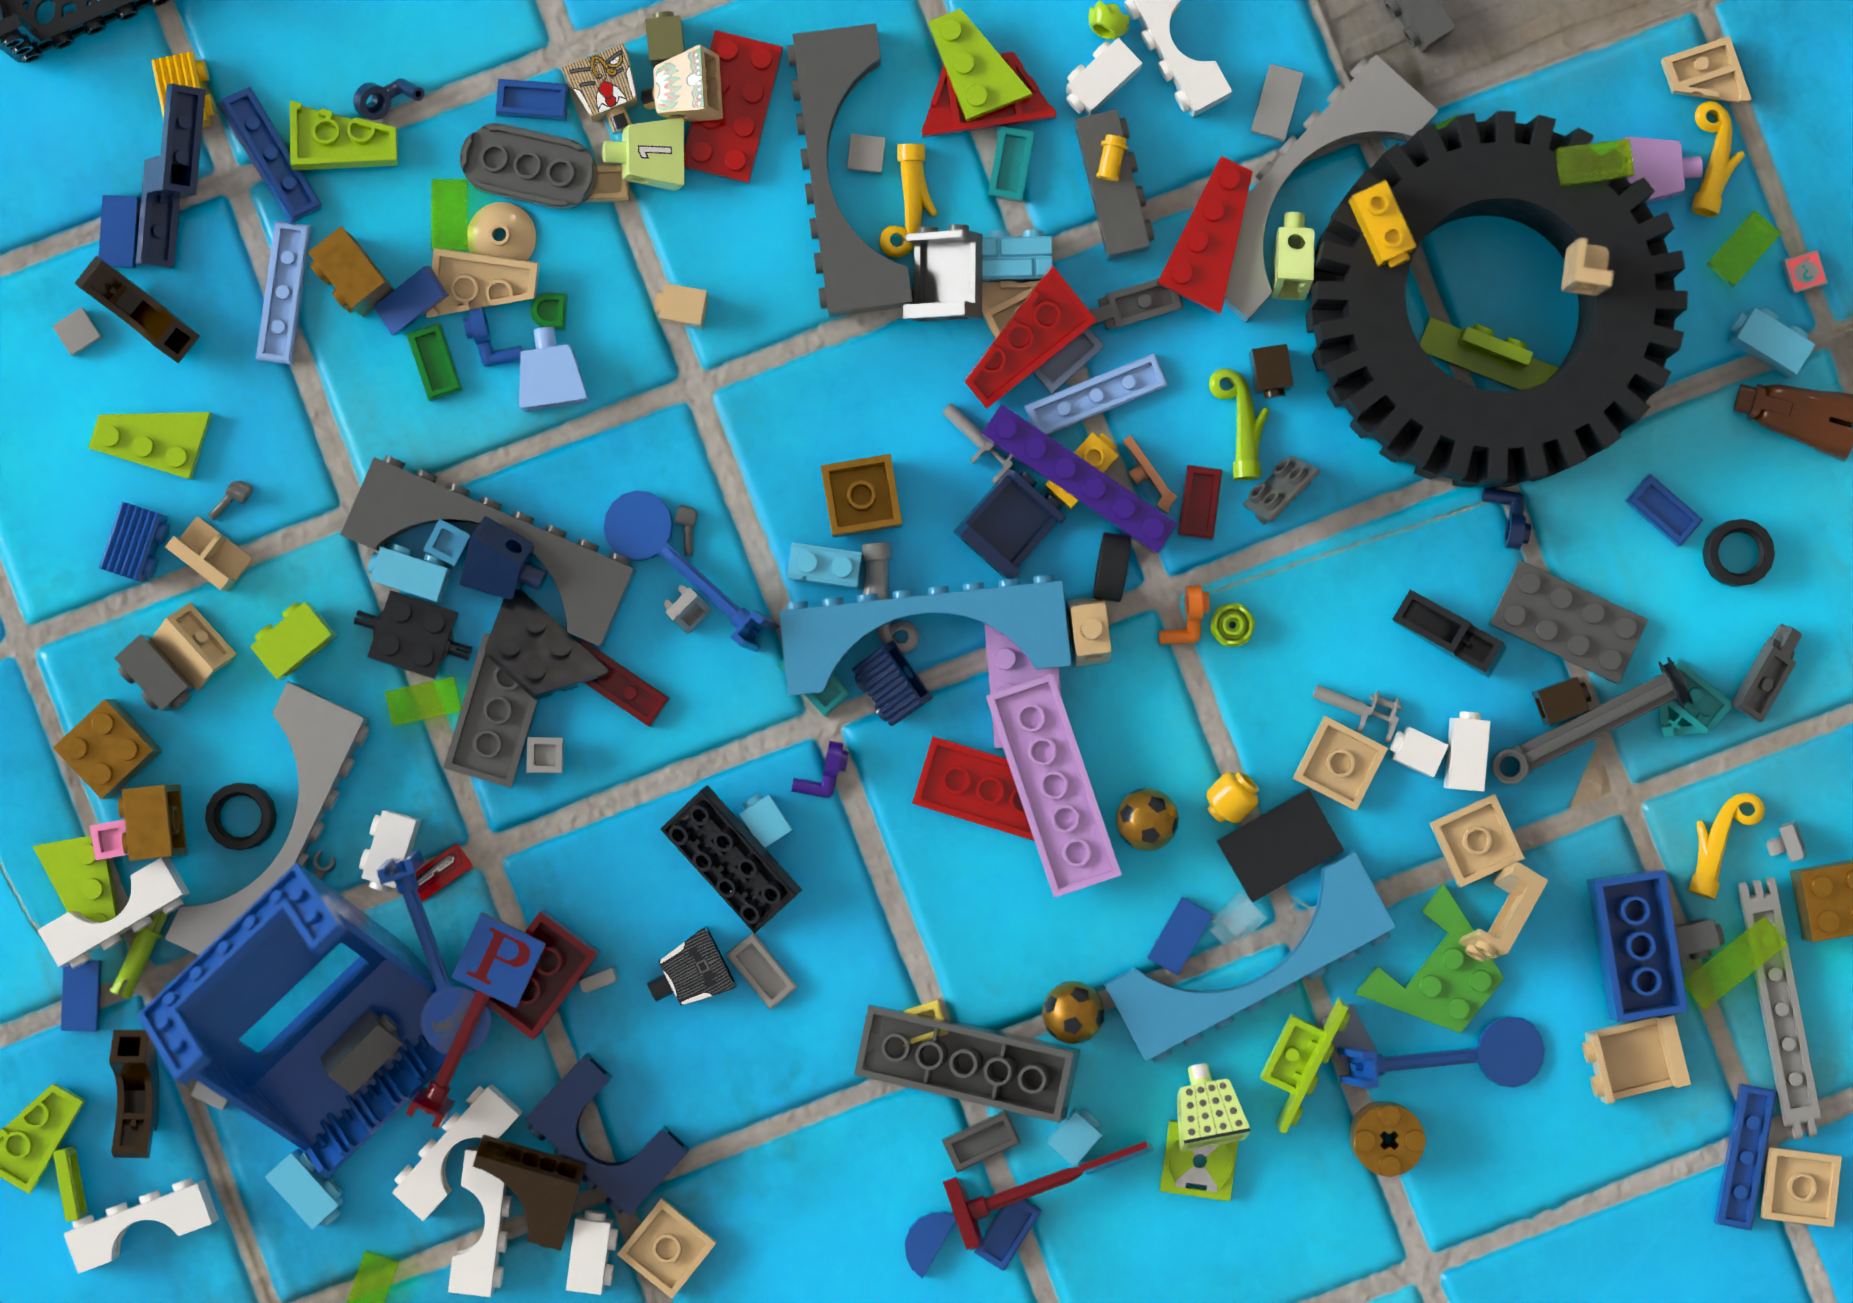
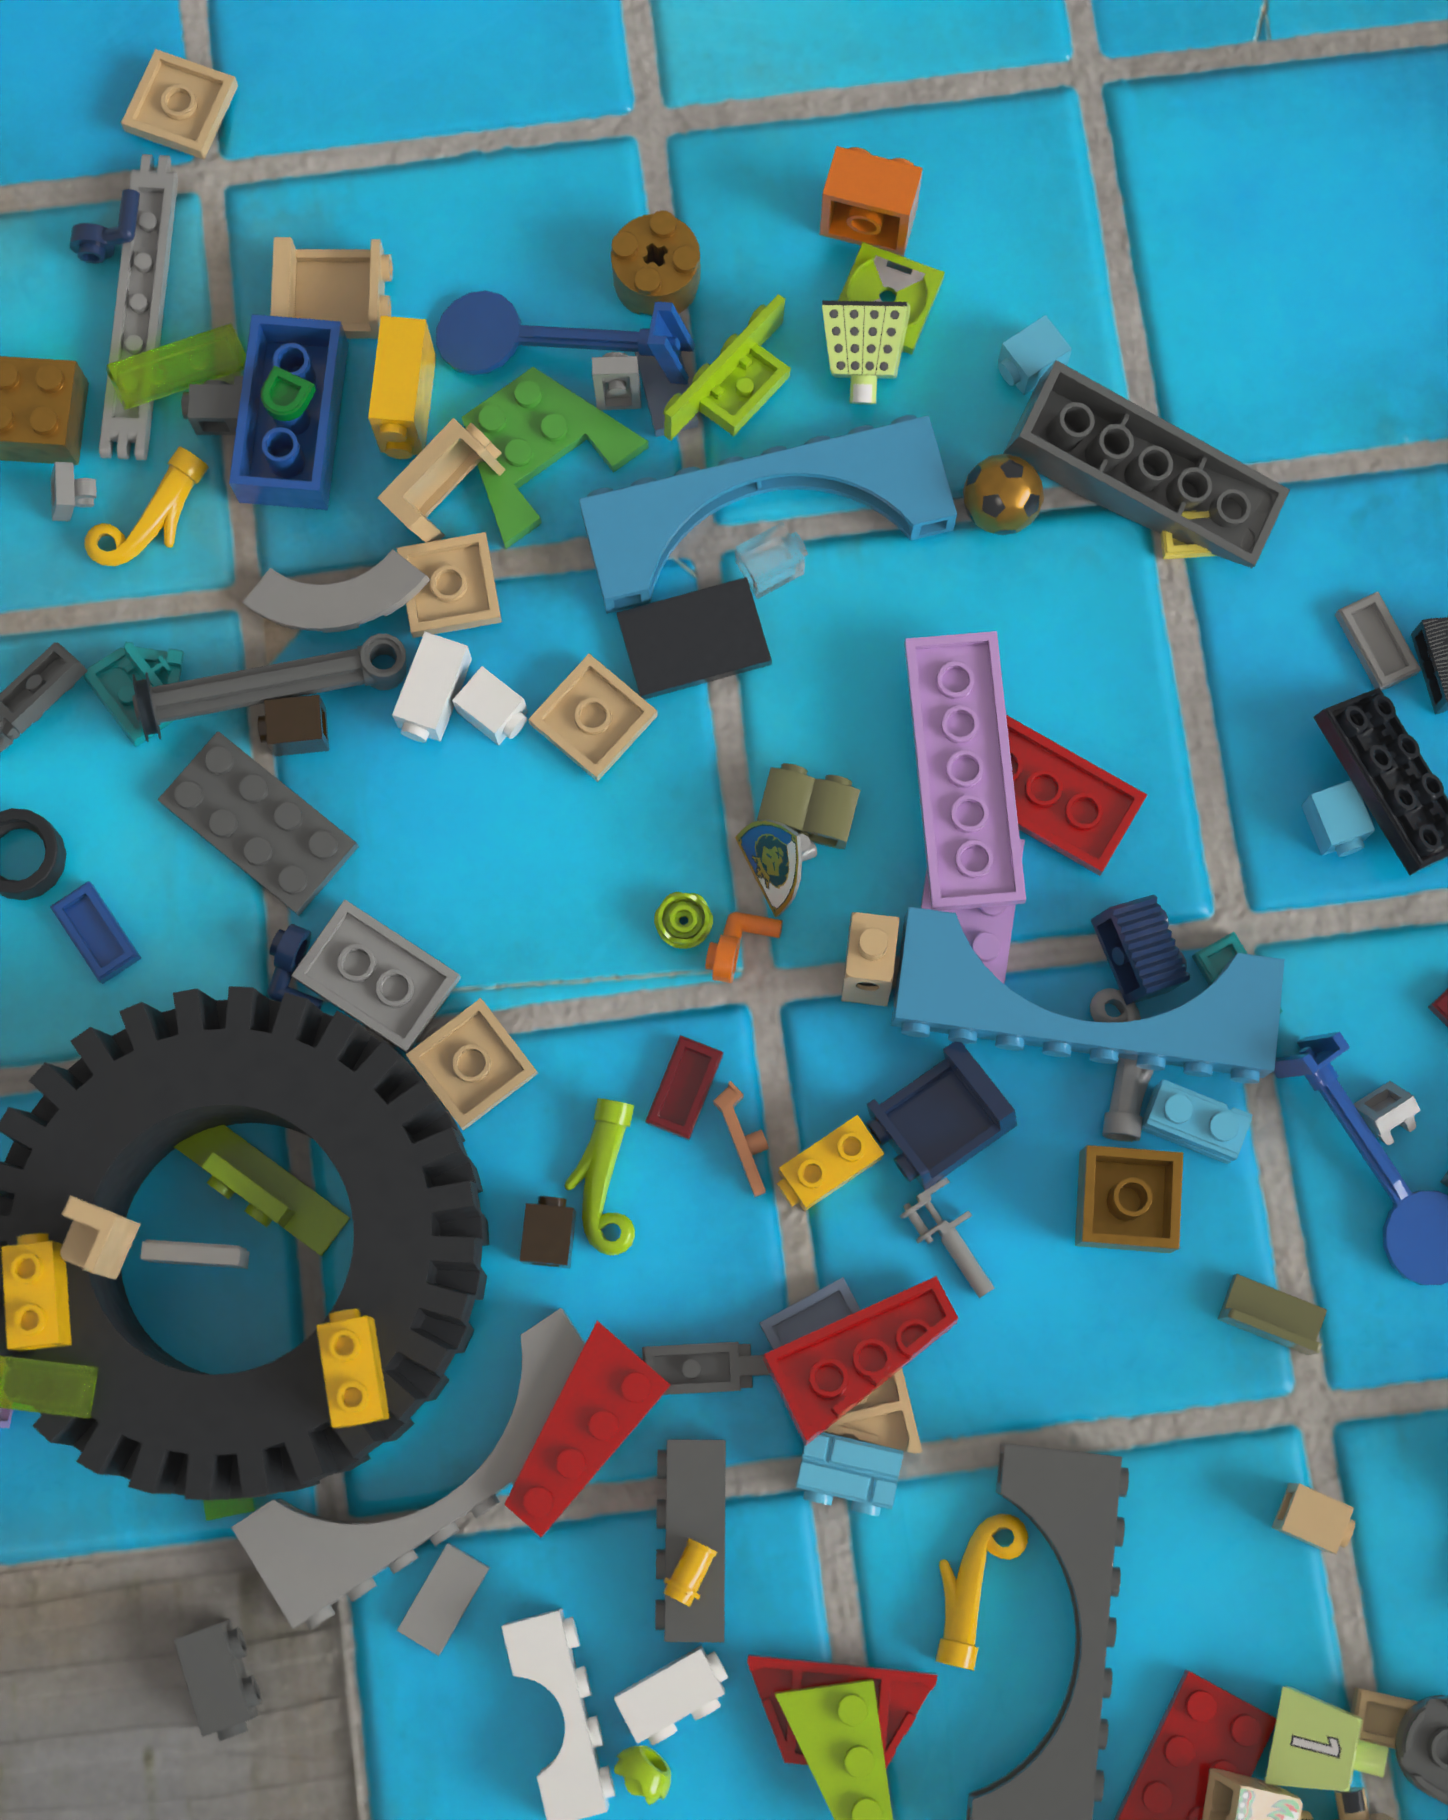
camera: 165 degrees left, 10 degrees down
(687, 516) = (1360, 1232): dark grey hand -> none
(739, 442) = (1273, 1315): none -> olive panel
(835, 761) = (1234, 870): dark purple plate -> none
(866, 154) = (1017, 1670): light grey tile -> none
(926, 1239) = (1239, 285): blue tile -> none
(946, 274) = (949, 1468): panel -> none
(969, 1211) = (1185, 297): dark red piece -> none
(981, 1141) = (1151, 378): dark grey tile -> none
(1007, 1233) = (1138, 272): blue tile -> none
(1010, 164) = (823, 1605): teal tile -> none
(1079, 479) = (841, 1147): dark purple arch -> none
(1097, 395) = (785, 1260): light blue tile -> none
(1112, 567) = (822, 1025): black tyre -> none
(1147, 819) = (854, 702): pearl gold piece -> none
(1161, 732) = (810, 805): none -> olive brick
(1175, 684) = (775, 859): none -> shield
(1179, 936) = (846, 561): blue tile -> none
(1232, 797) = (739, 706): yellow head -> none
(1233, 1231) = (870, 199): none -> orange brick
(1282, 487) = (577, 1073): dark grey hinge -> none
(1293, 259) = (483, 1356): yellowish green torso -> none
(1359, 480) = (472, 1064): none -> tan plate
(1360, 708) = (547, 778): light grey piece -> none
(1392, 1030) = (616, 381): none -> light grey plate
(1447, 527) = (376, 976): none -> light grey plate
(1450, 633) = (411, 843): black slope -> none
(1517, 285) = (195, 1254): none -> light grey tile
(1555, 801) = (340, 604): none -> light grey tile
(1555, 984) = (402, 386): none -> yellow brick
(1618, 221) = (35, 1294): none -> yellow brick
(1642, 949) = (286, 394): none -> green tile
(1745, 1156) = (234, 155): blue tile -> none
(1830, 1050) = (96, 242): none -> dark blue plate

